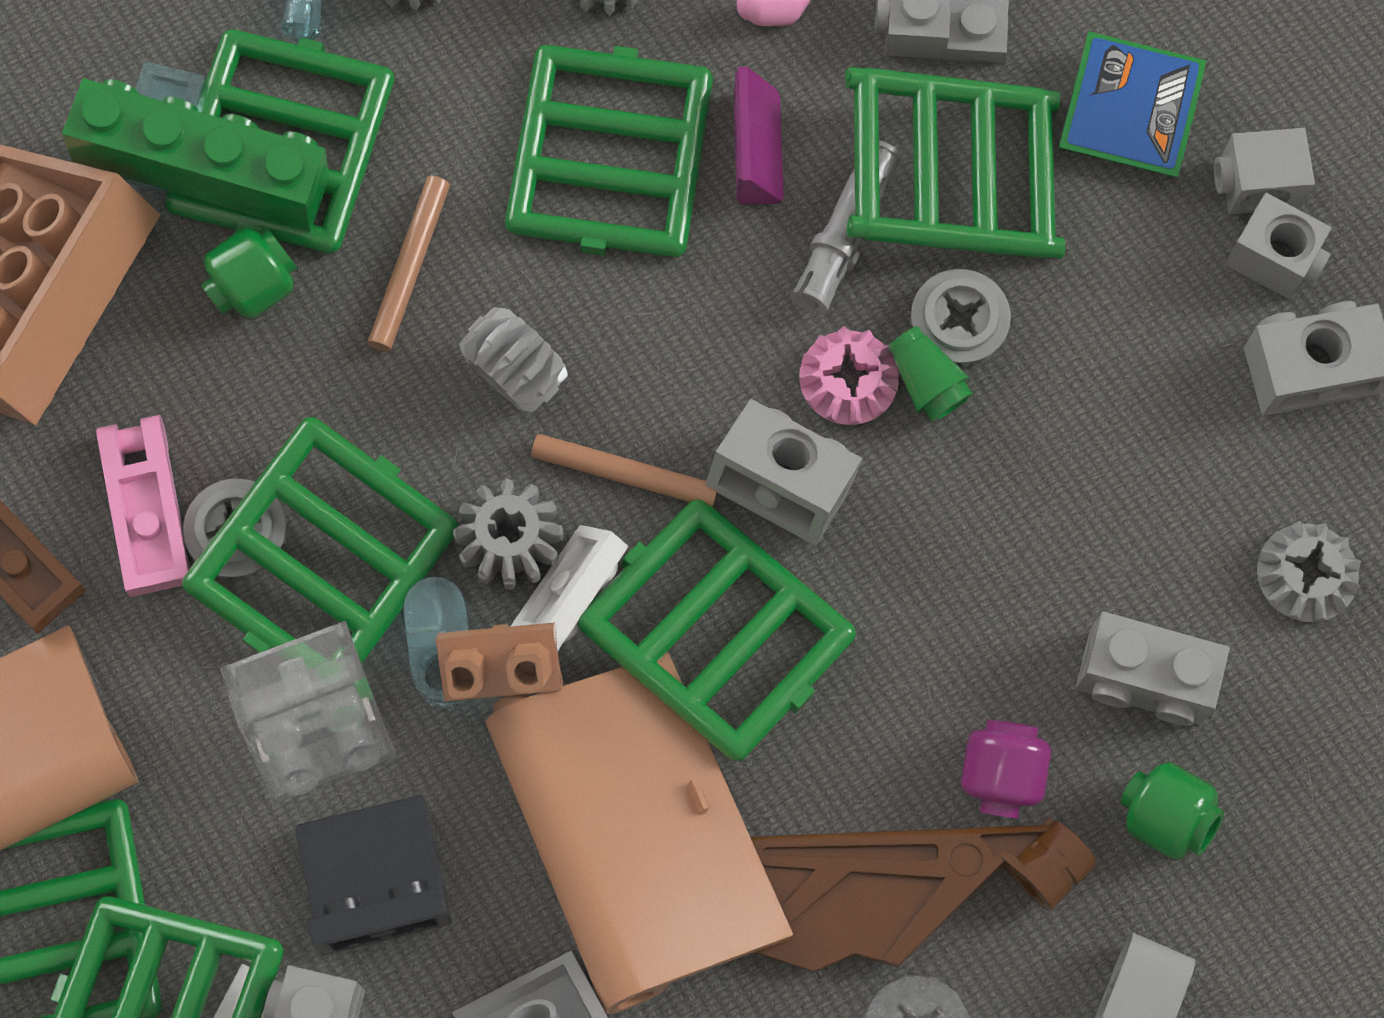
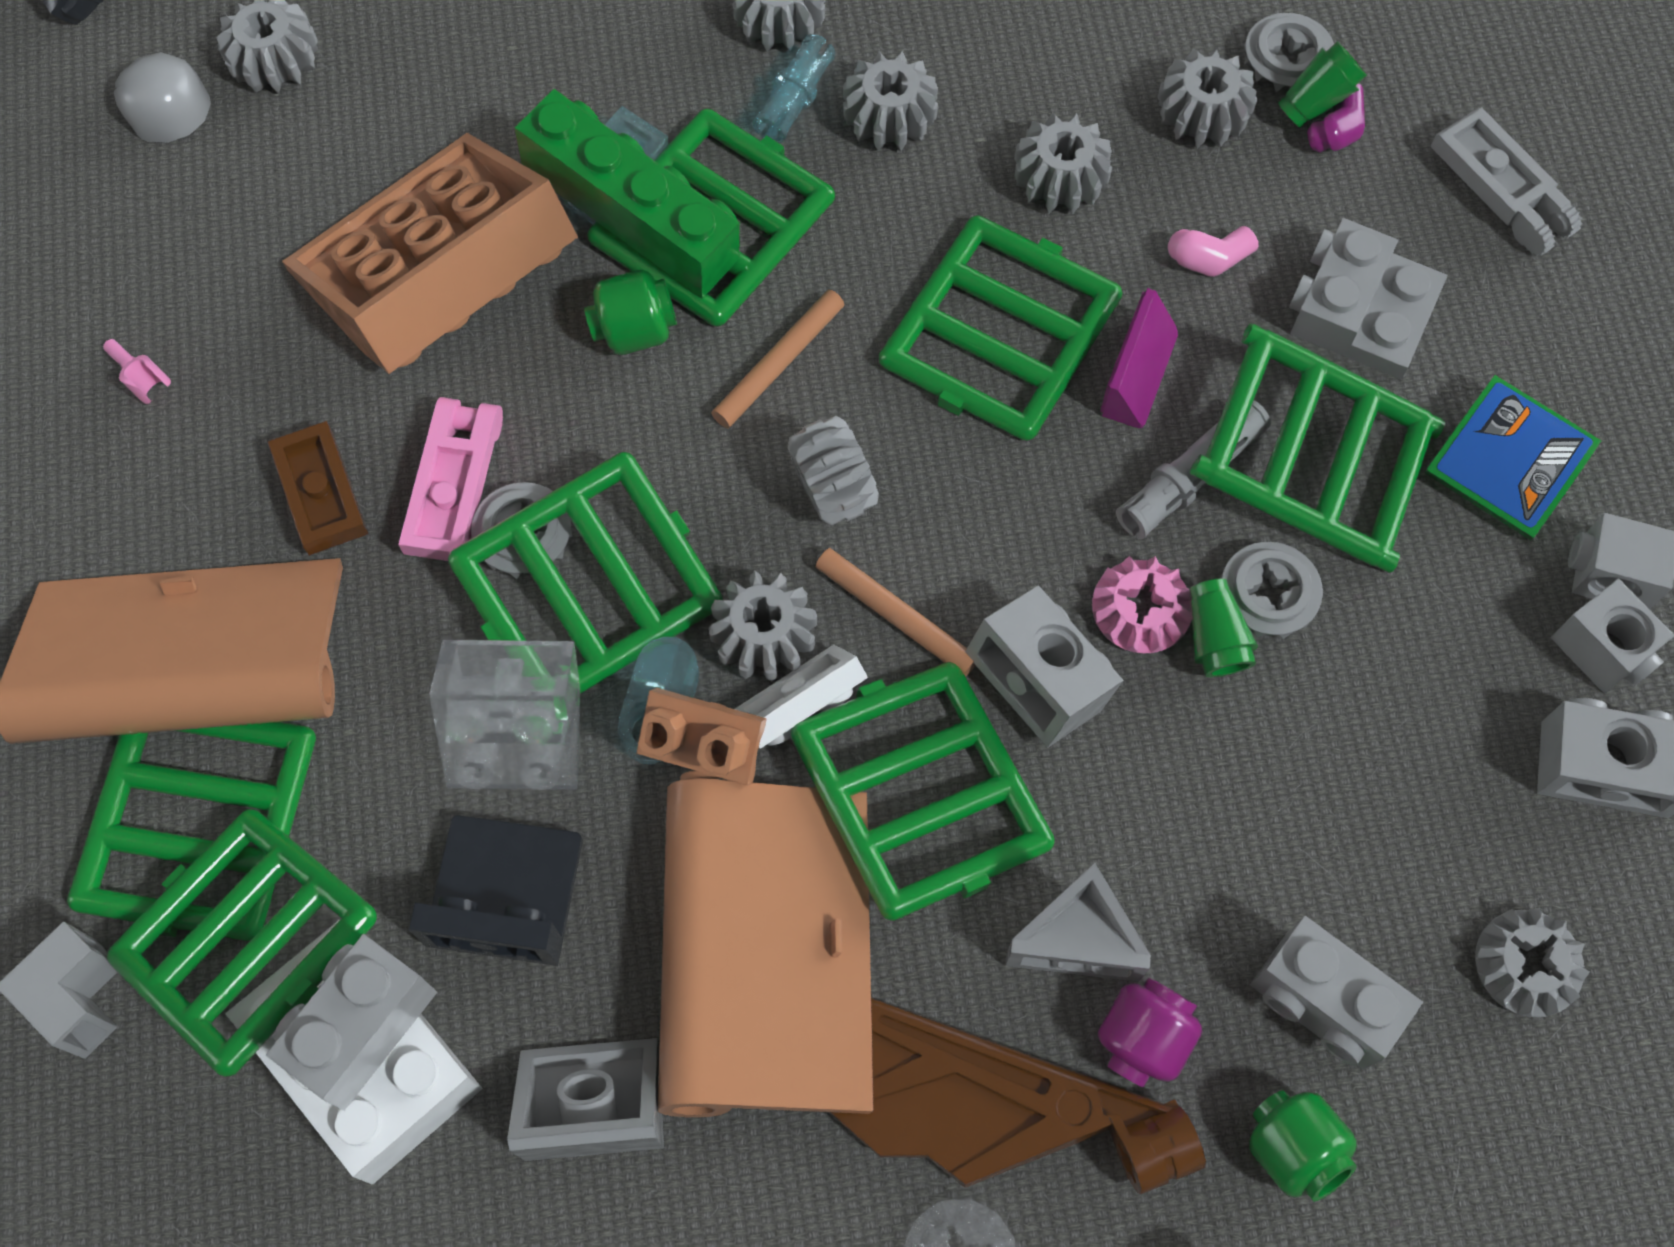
camera: 25 degrees right, 5 degrees down
(916, 705) = (1082, 935): none -> light grey slope

